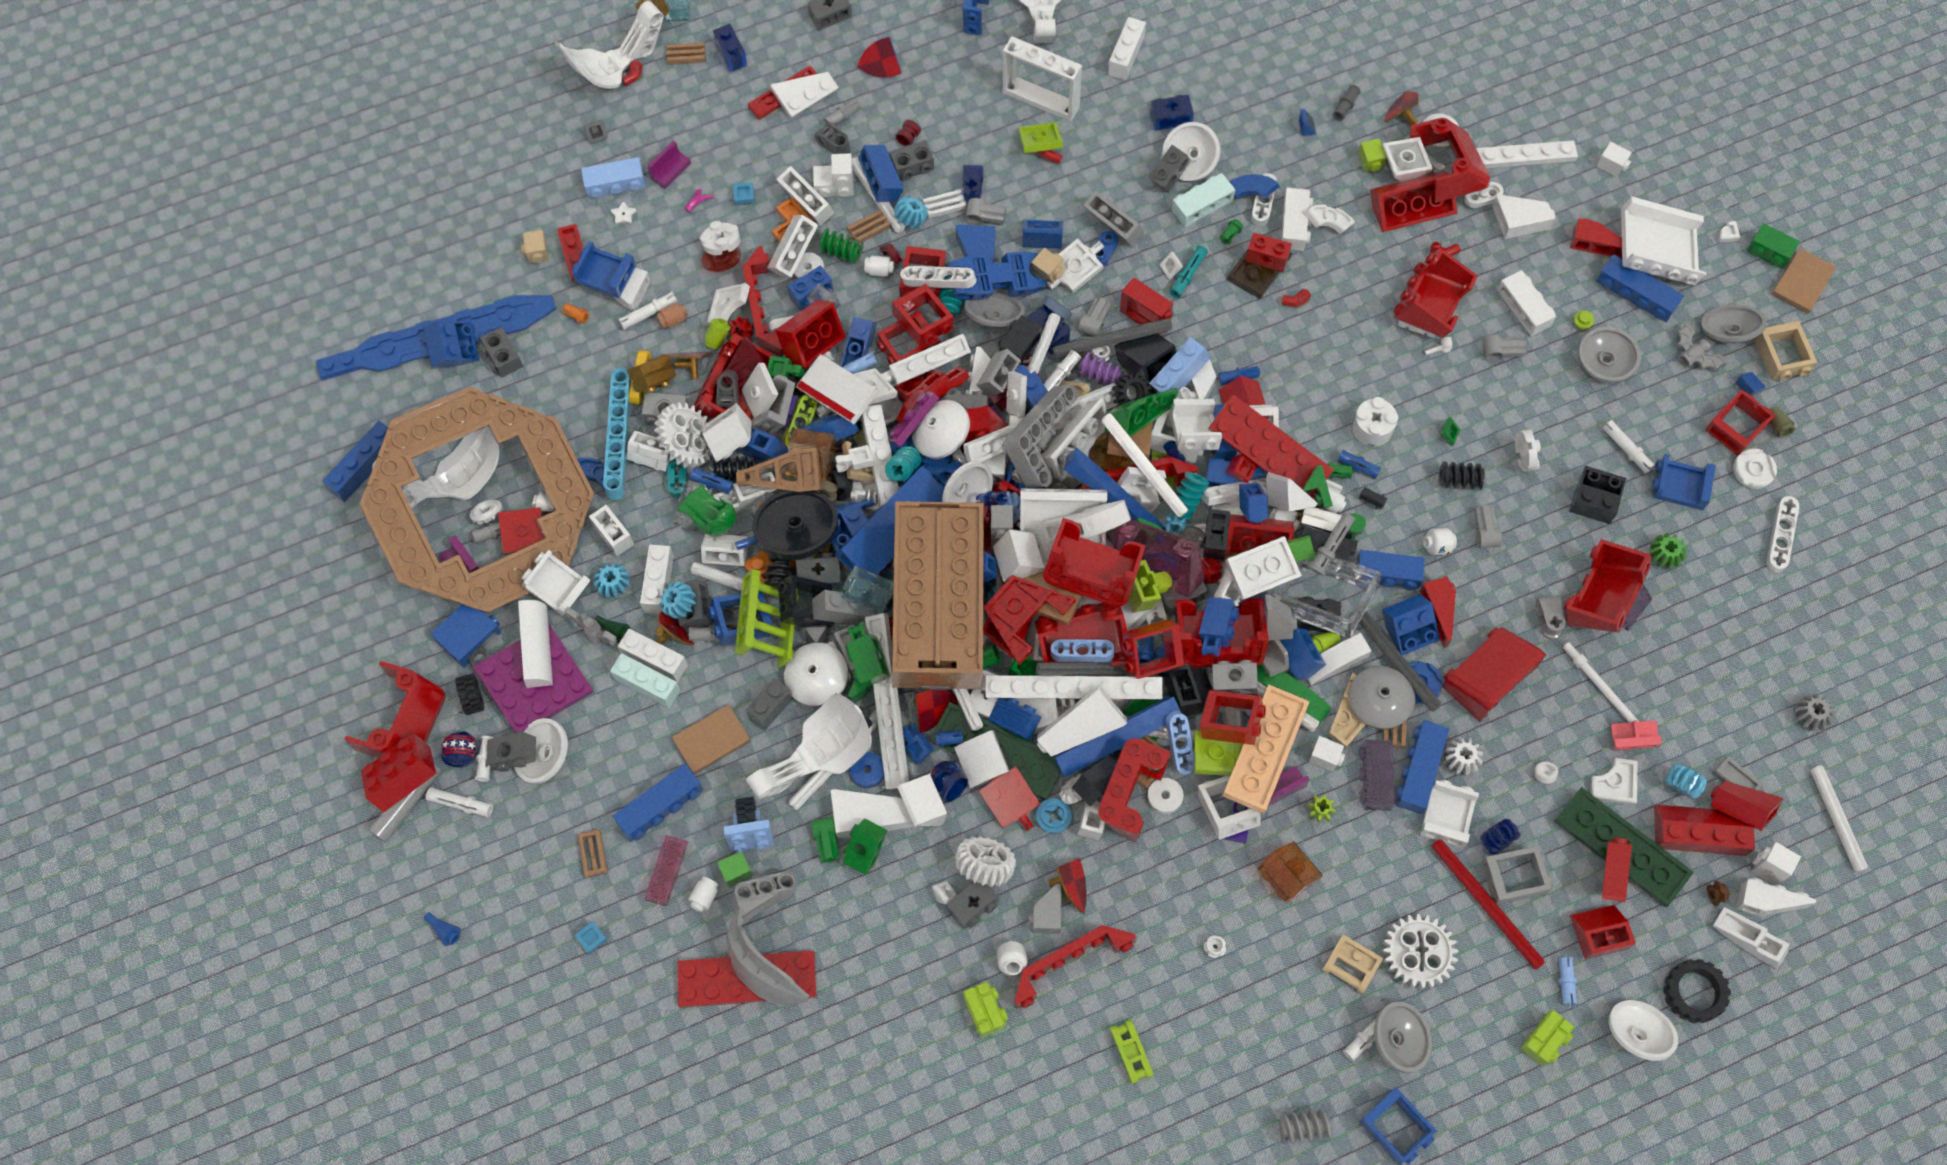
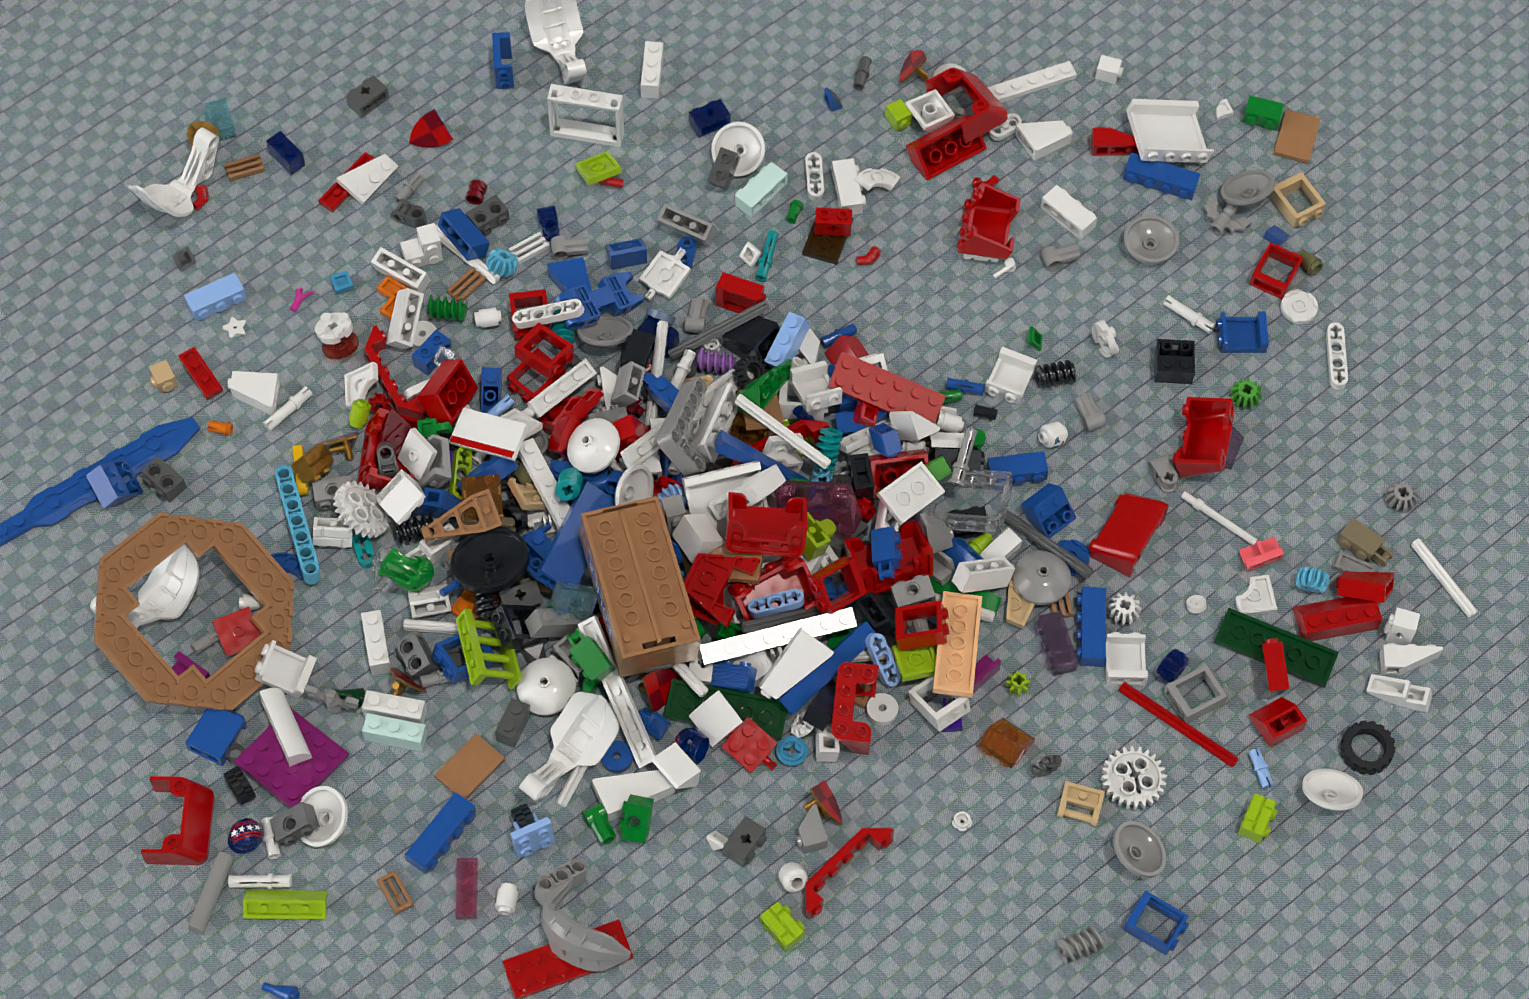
camera: 20 degrees left, 5 degrees down
(357, 464) = (65, 609): blue brick -> none
(398, 772) = (199, 867): red brick -> none
(476, 833) = (285, 904): none -> lime panel
(486, 511) = (198, 623): white gear -> none
(590, 937) = (418, 962): dark azure plate -> none
(603, 270) = (237, 382): blue panel -> none
(610, 573) = (342, 654): medium azure gear -> none
(611, 530) = (321, 610): white brick -> none
(668, 165) = (263, 274): magenta panel -> none
(672, 315) = (312, 407): nougat brick -> none
(677, 600) = (403, 653): medium azure gear -> none
(699, 475) = (399, 543): blue pin -> none
(735, 869) = (527, 870): bright green panel -> none
(857, 458) = (525, 489): white plate -> none
(889, 249) = (495, 302): dark red tile -> none
(913, 418) = (566, 442): magenta plate -> none
(949, 737) = (681, 708): blue pin -> none
(985, 861) = (745, 802): white gear -> none
(992, 498) = (661, 492): clear blue pin -> none
(1016, 393) = (650, 398): white plate -> none
(1049, 265) = (642, 280): tan brick -> none
(1131, 1051) = (917, 925): lime plate -> none
(1254, 185) = (803, 165): blue tile -> none
(1317, 481) = (935, 409): green slope -> none
(1317, 678) = (983, 574): none -> white brick
(1326, 911) = (1046, 765): none -> dark grey gear
(1327, 754) = (1009, 637): white brick -> none
(1360, 1043) = (1108, 863): white pin -> none
(1374, 422) = (968, 346): white brick -> none
(1412, 465) = (1010, 376): none -> white panel
(1442, 596) = (1069, 479): red slope -> none
(1583, 320) = (1121, 215): lime plate -> none
(1717, 893) = (1363, 664): reddish brown plate -> none
(1757, 754) = (1364, 543): none -> dark tan brick

